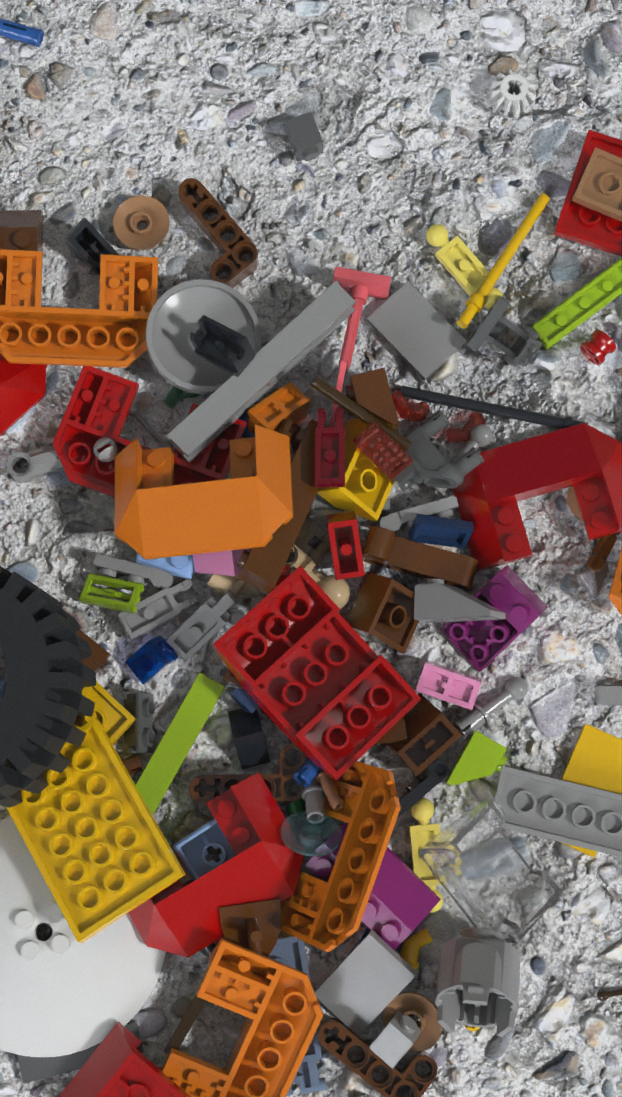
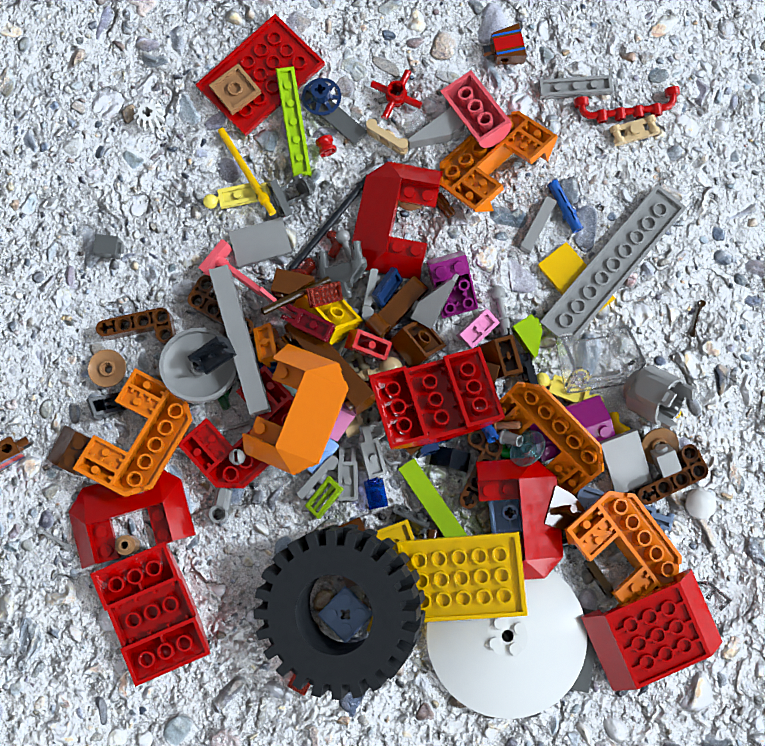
camera: 60 degrees left, 0 degrees up
(294, 305) = (207, 302): none -> reddish brown beam

